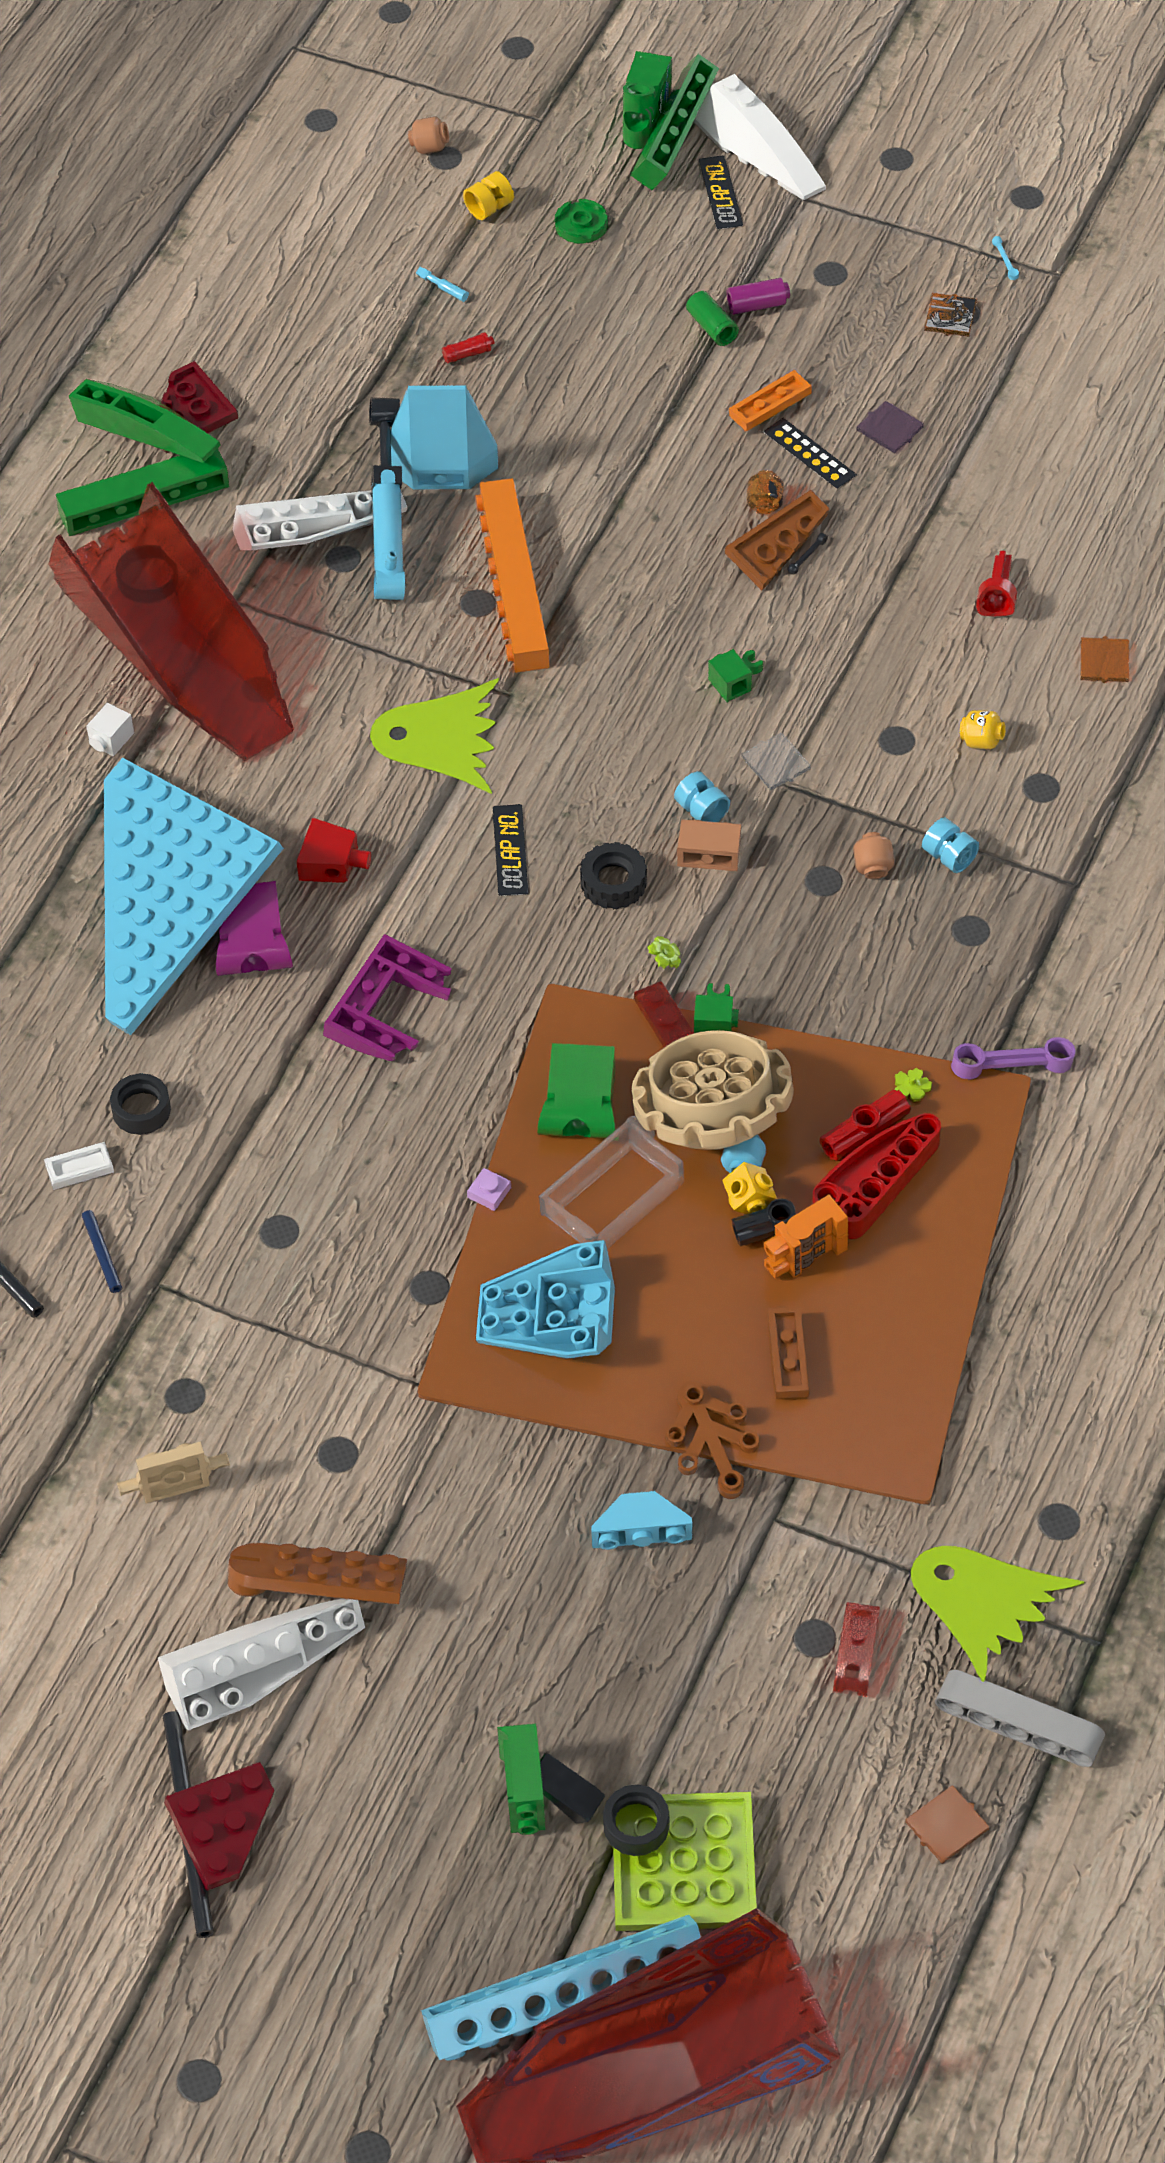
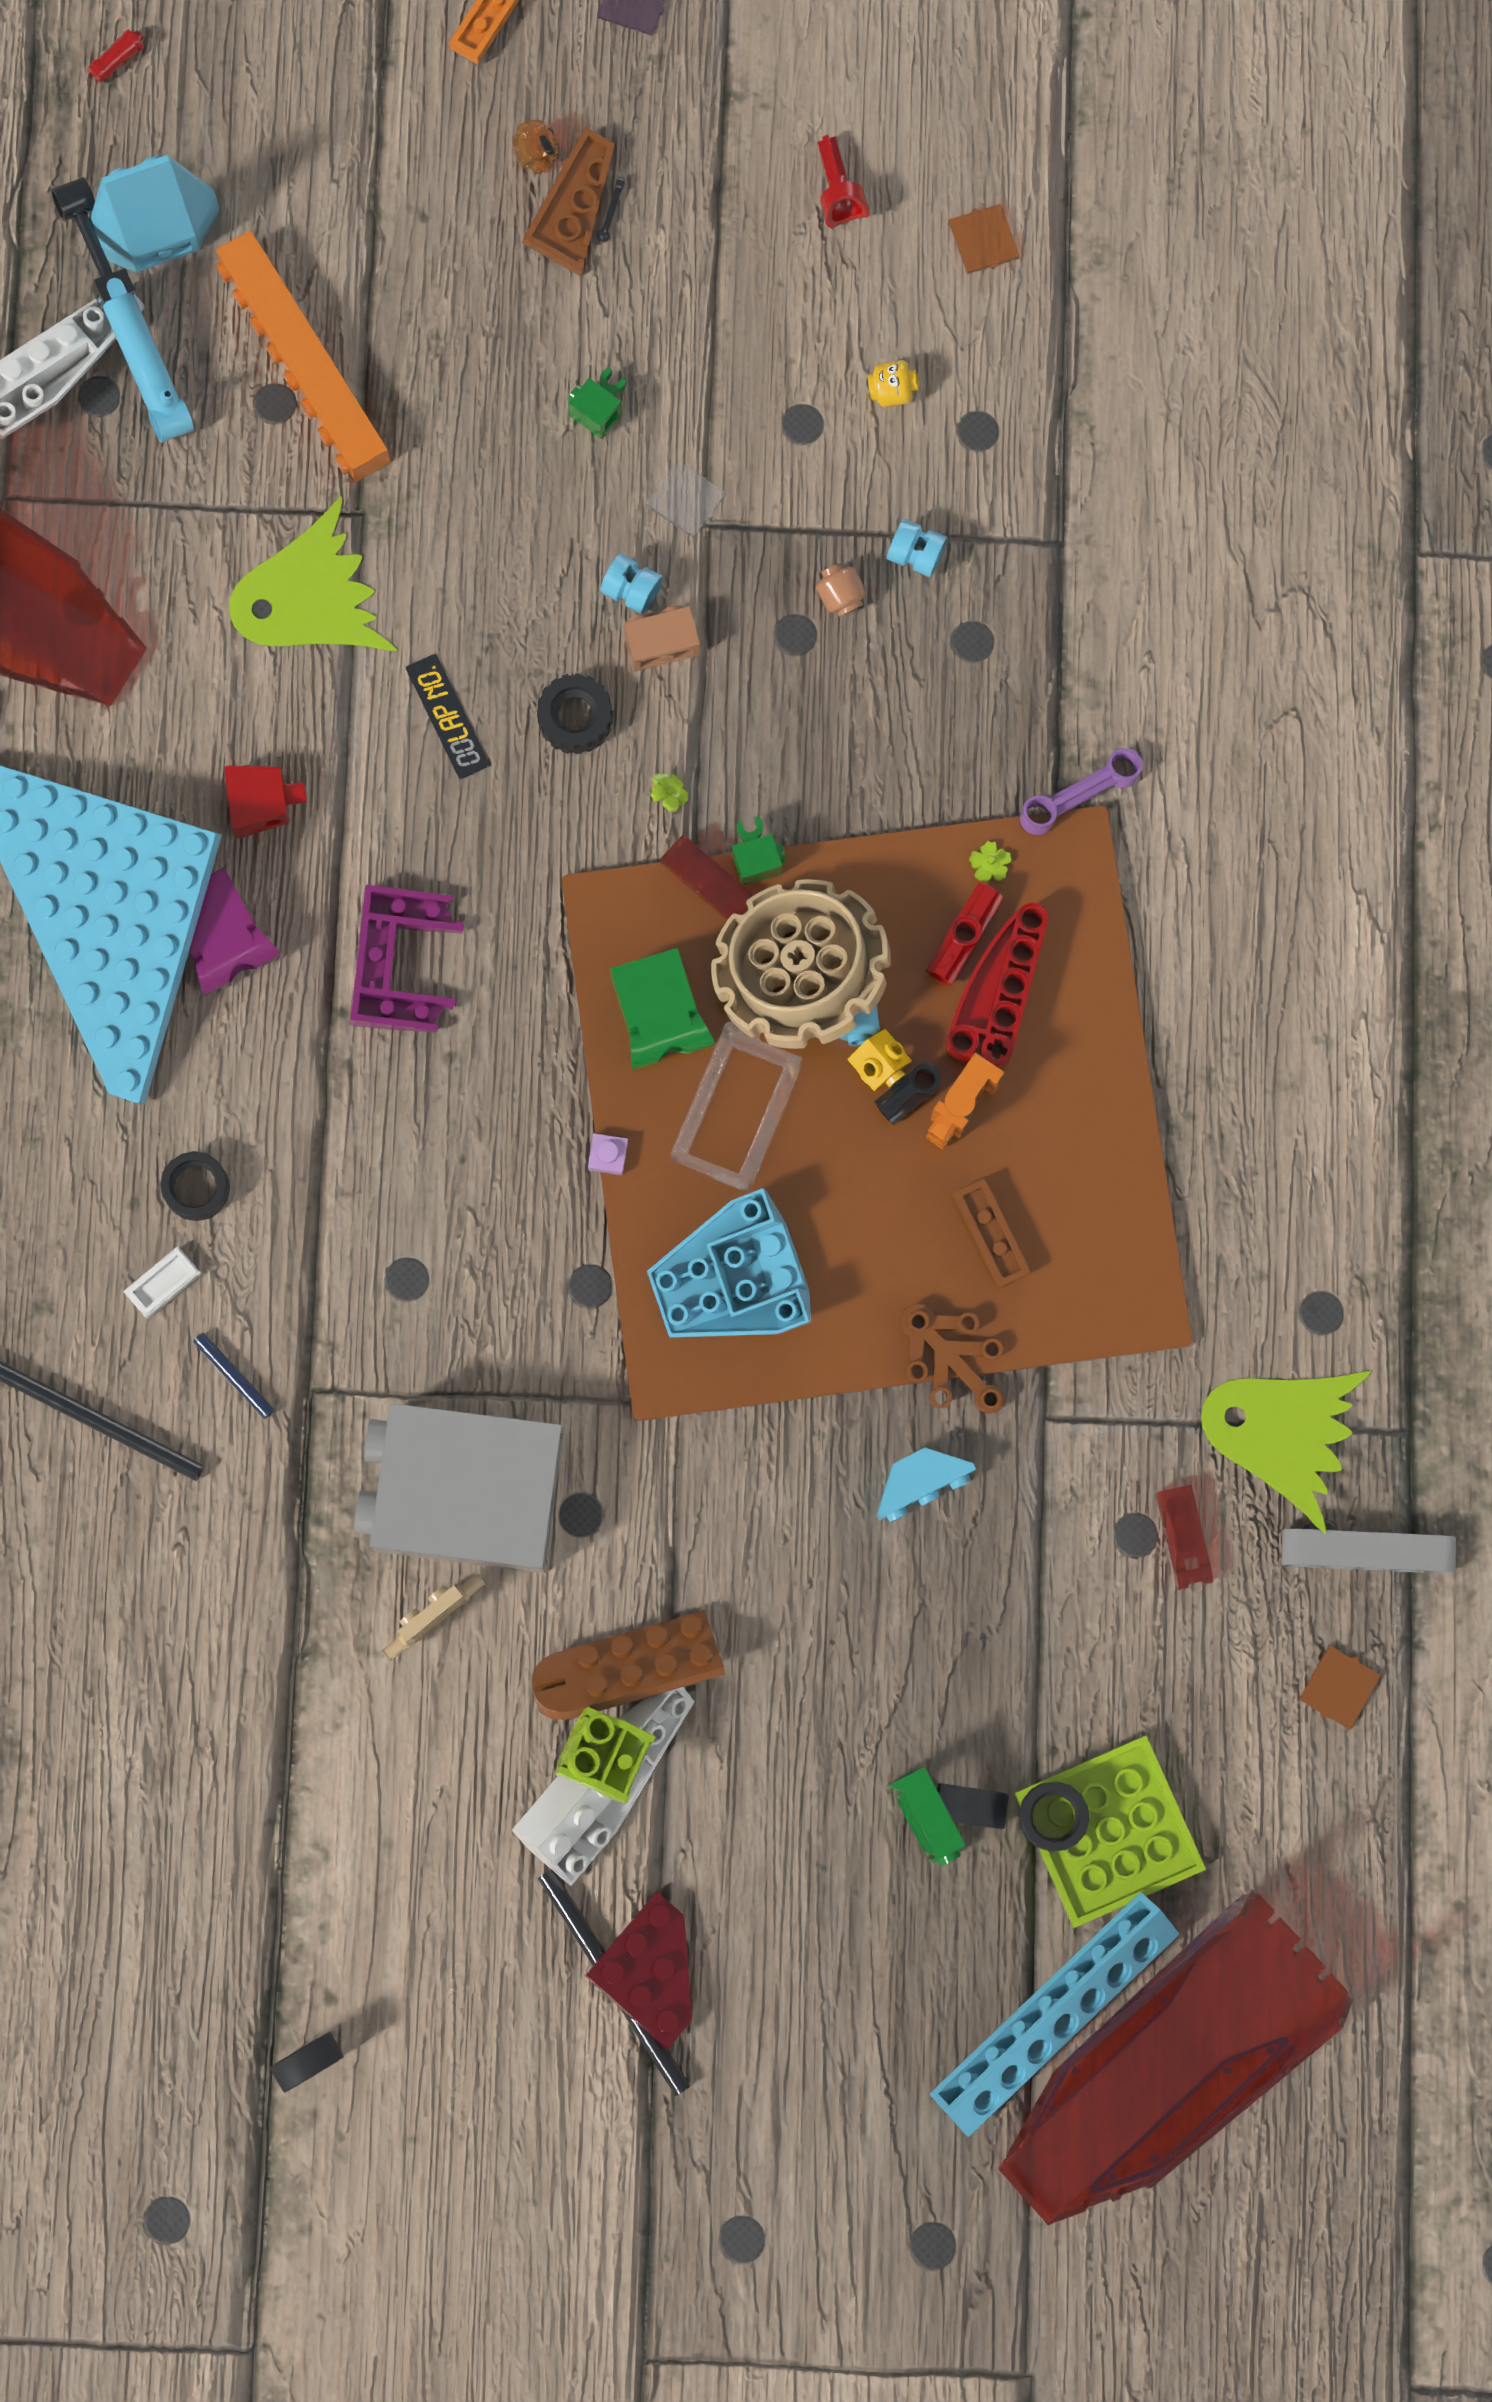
camera: 30 degrees left, 25 degrees up
(247, 1387) = (461, 1487): none -> light grey brick
(265, 1615) = (604, 1754): none -> lime slope
(810, 453) = (558, 68): black sticker -> none

